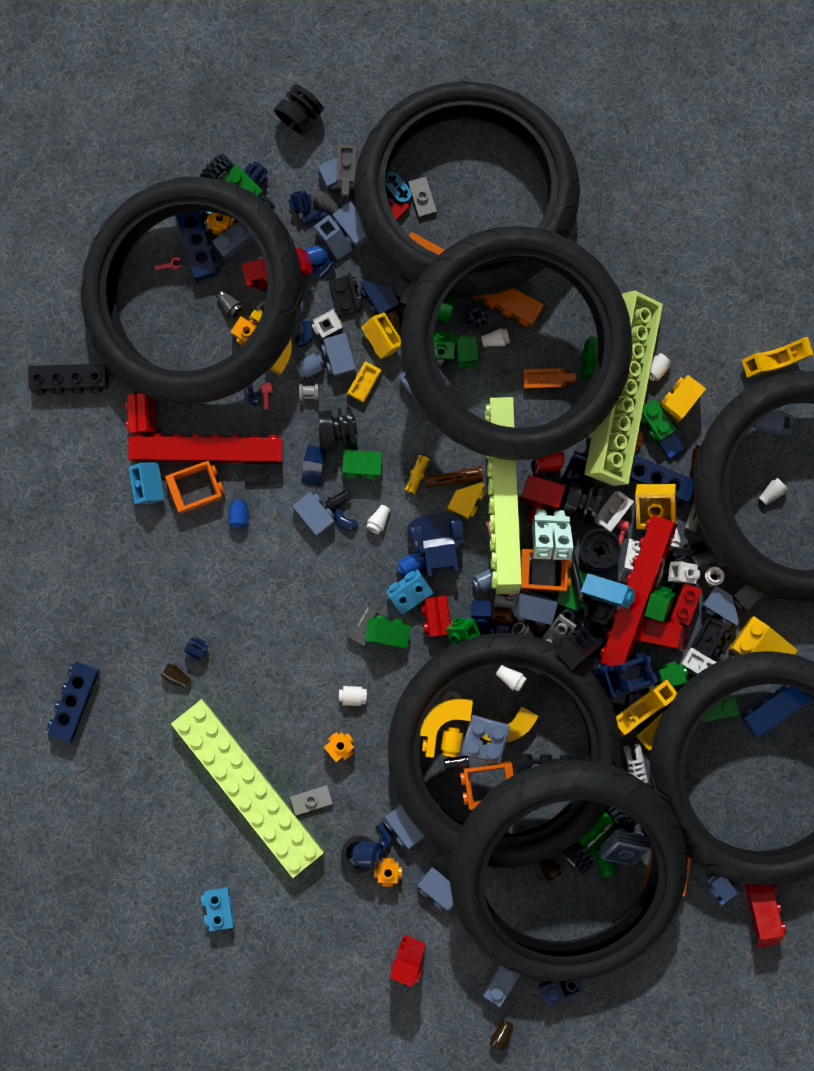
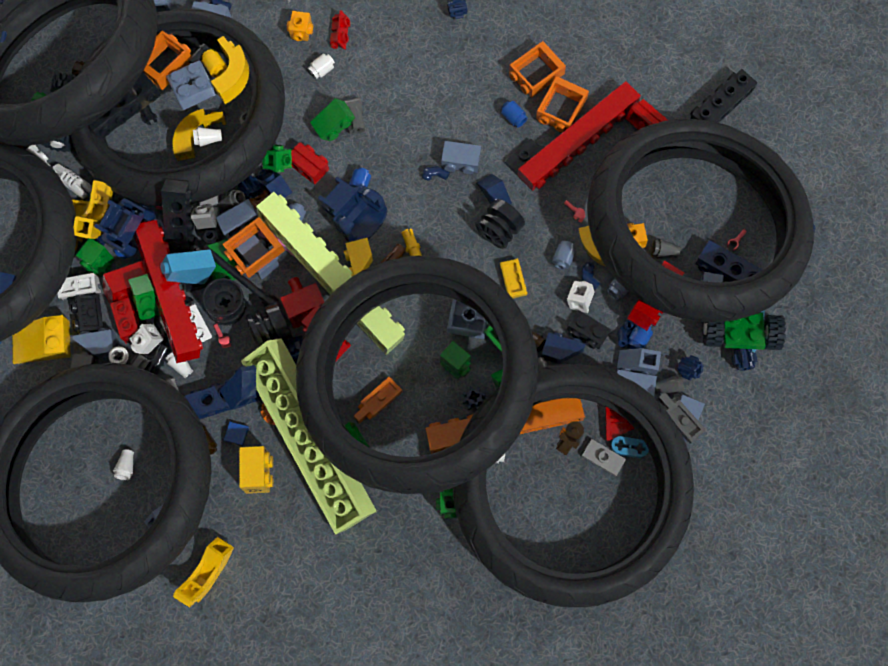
camera: 145 degrees right, 10 degrees down
(146, 483) = (596, 78): dark azure brick -> none
(166, 530) = (548, 56): none -> orange window
(252, 398) = (580, 197): dark blue arm -> none
(299, 108) = (763, 434): black wheel -> none
(302, 721) = (340, 23): none -> red hinge
(308, 392) = (546, 237): light grey bush -> none
(314, 215) = (669, 370): dark blue arm -> none
(337, 500) = (453, 181): black pin -> none
(339, 355) = (549, 280): sand blue brick -> none
(362, 464) = (458, 217): green brick -> none
(378, 520) = (411, 192): white cone -> none
(382, 335) = (538, 319): yellow brick -> none
(409, 591) = (342, 160): dark azure brick -> none
(444, 345) = (481, 352): green brick -> none
(450, 204) = (570, 437): none -> dark brown hips
(496, 338) = (443, 398): white cone -> none
(552, 534) = (270, 279): light aqua hips -> none
(613, 511) = (239, 342): white hinge -> none
(646, 463) = (240, 387): none -> dark blue slope
(655, 500) = (209, 370): yellow brick -> none
(656, 421) = (256, 435): green brick -> none
(659, 366) = (296, 483): white brick -> none

